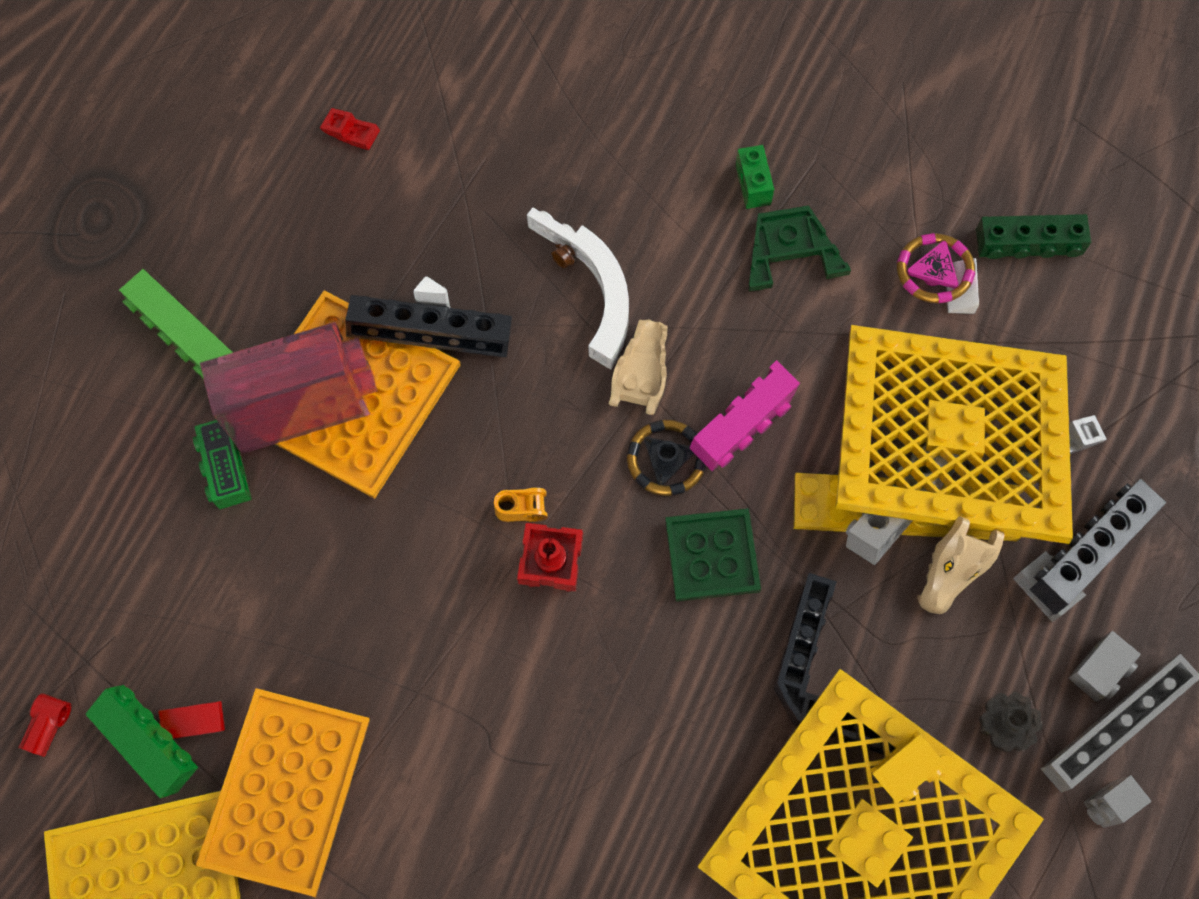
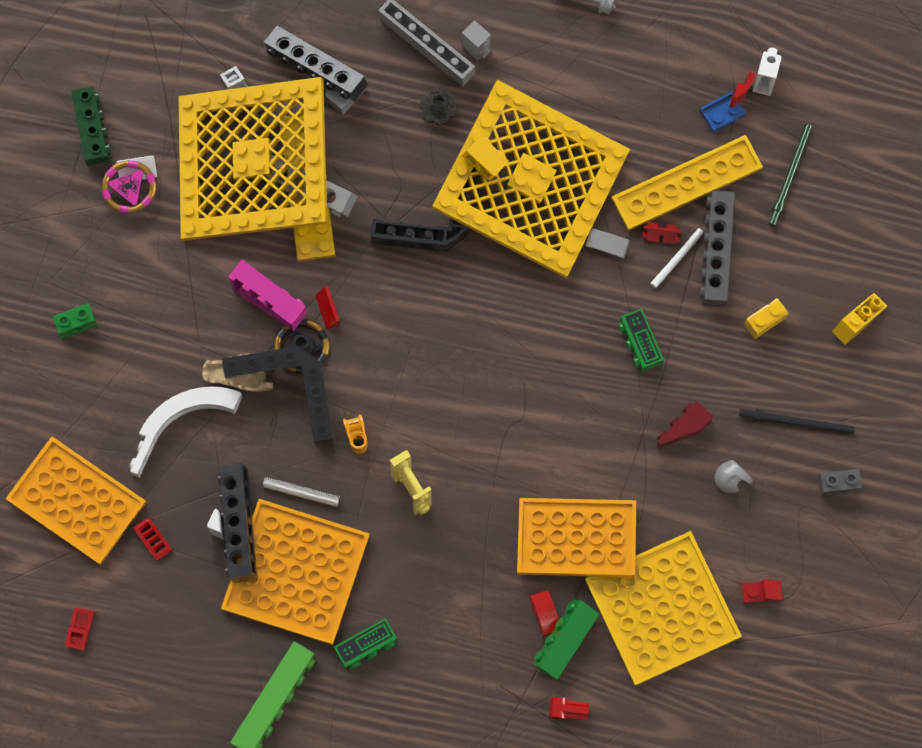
camera: 105 degrees left, 5 degrees up
(289, 387) = (313, 591): clear pink brick -> none
(414, 553) = (402, 472): none -> light yellow fence
(453, 231) = (142, 525): none -> red slope
(456, 419) = (315, 496): none -> white axle
(513, 147) = (76, 500): none -> light orange plate
(560, 546) = (393, 399): red piece -> none
(563, 255) = (161, 445): reddish brown plate -> none
(608, 454) = (290, 358): none -> black brick
(712, 555) = (365, 303): dark green plate -> none
(715, 502) = (327, 308): none -> red slope
(788, 236) = (118, 291): dark green wing -> none
(956, 564) = (347, 146): tan animal -> none
(1105, 667) = (391, 54): light grey brick -> none

